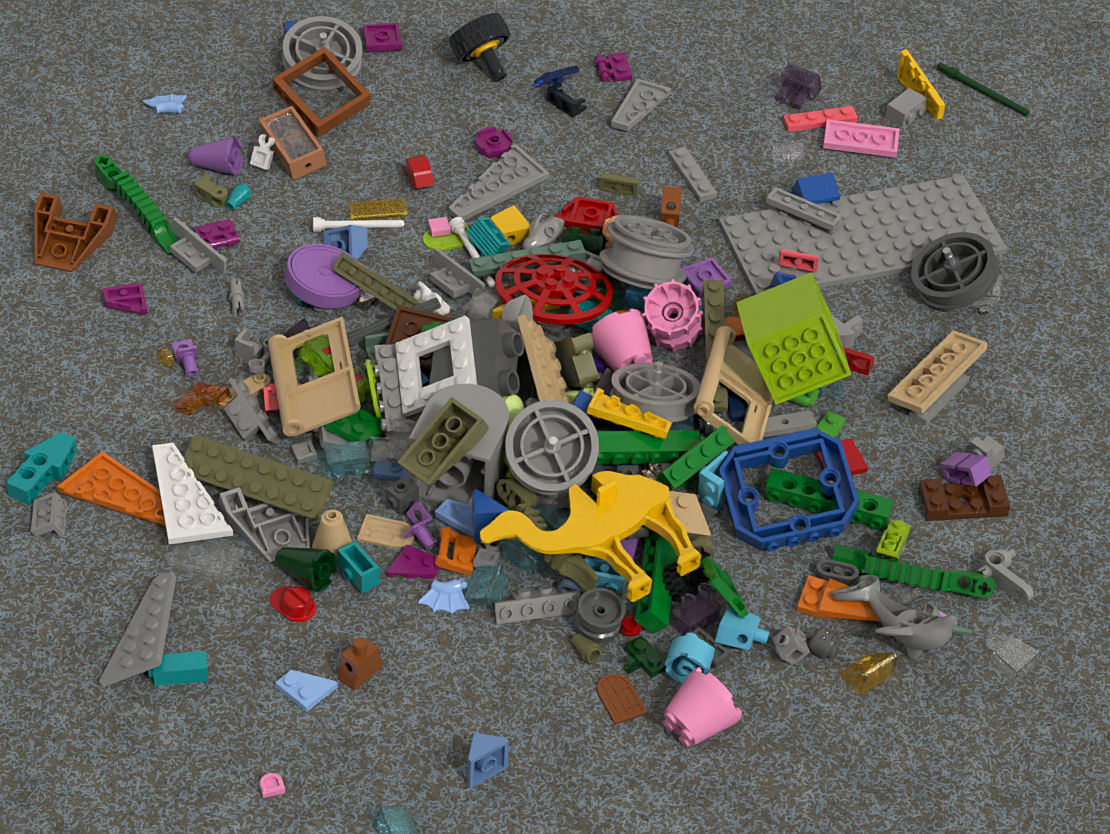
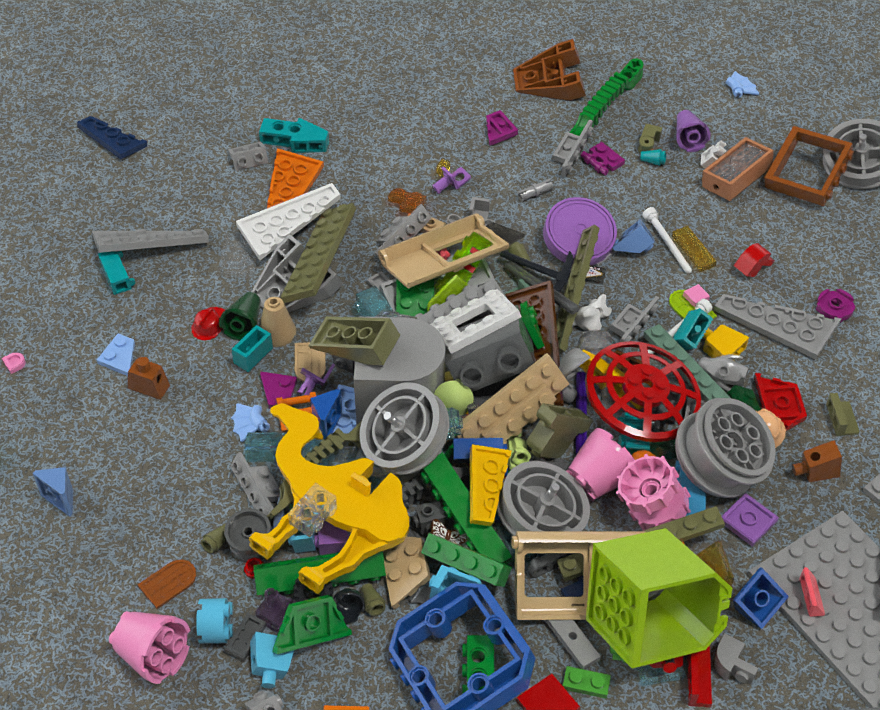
camera: 75 degrees right, 5 degrees up
(374, 308) = (561, 277): none -> black piece
(624, 532) = (309, 508): none -> clear brick
(643, 655) = (224, 587): dark green plate -> none

